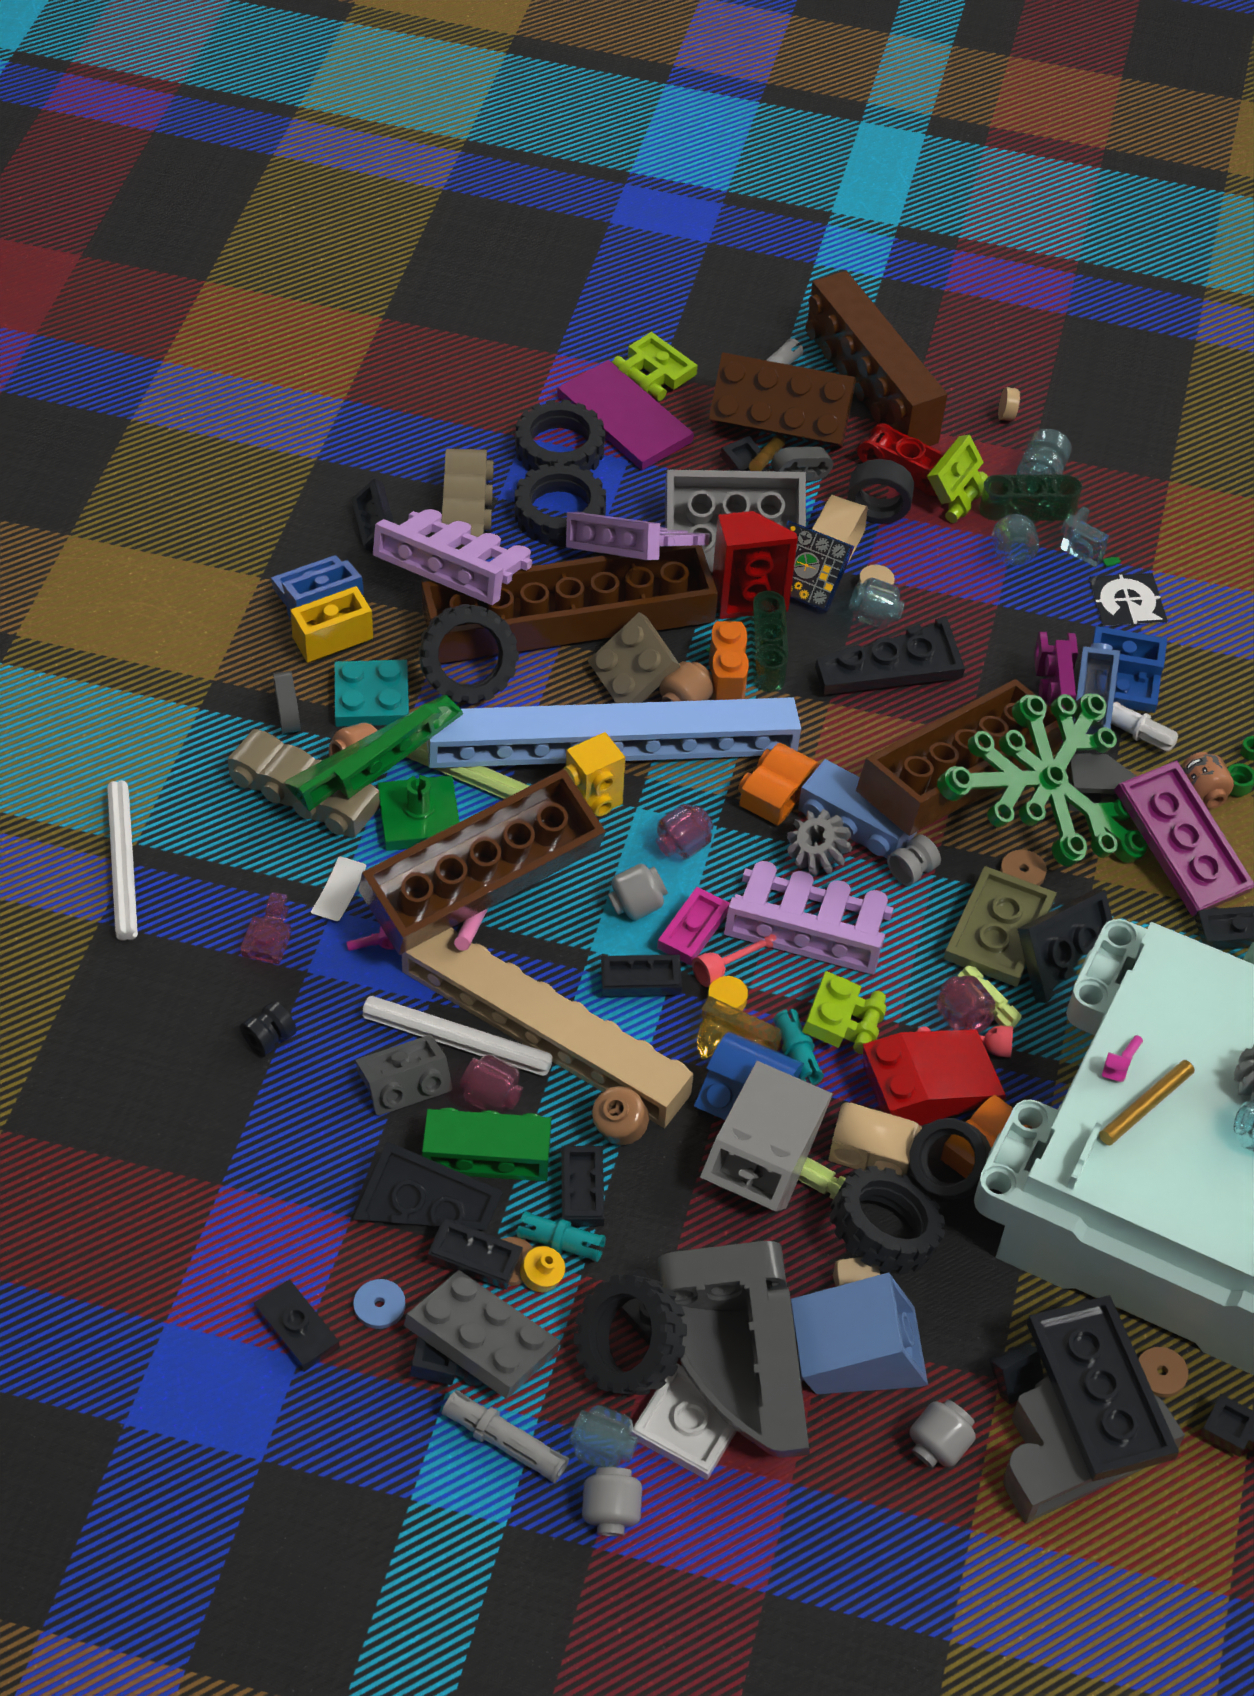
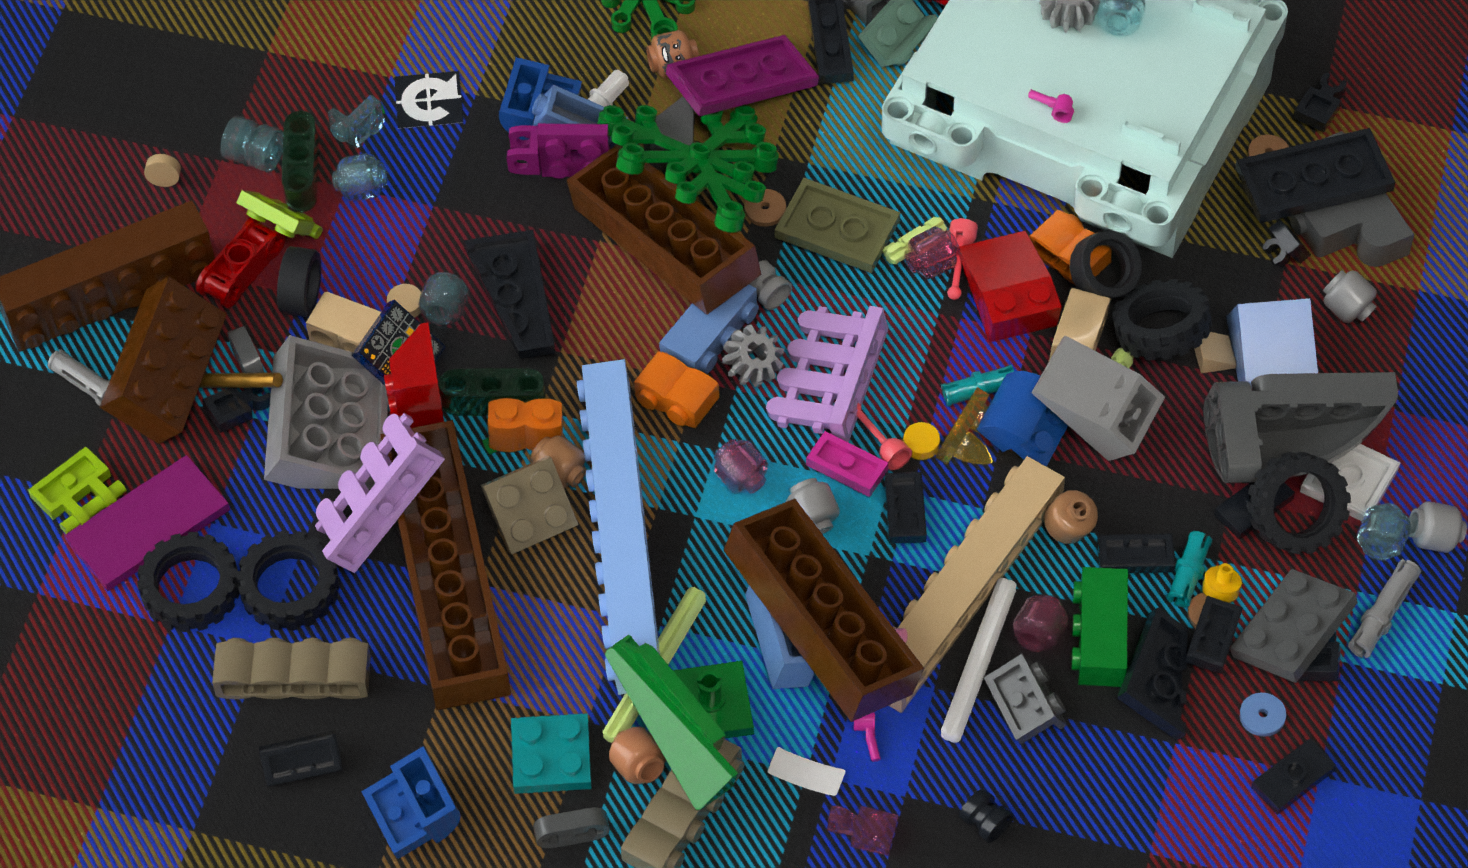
camera: 85 degrees left, 5 degrees up
(331, 624) = (472, 784): yellow brick -> none
(441, 562) = (413, 667): lavender fence -> none
(503, 670) = (510, 657): black tyre -> none
(598, 772) = (686, 534): yellow brick -> none
(832, 1010) = (939, 355): lime plate -> none
(1060, 939) = (850, 173): black wing -> none
(1146, 1102) = (1095, 90): pearl gold bar -> none

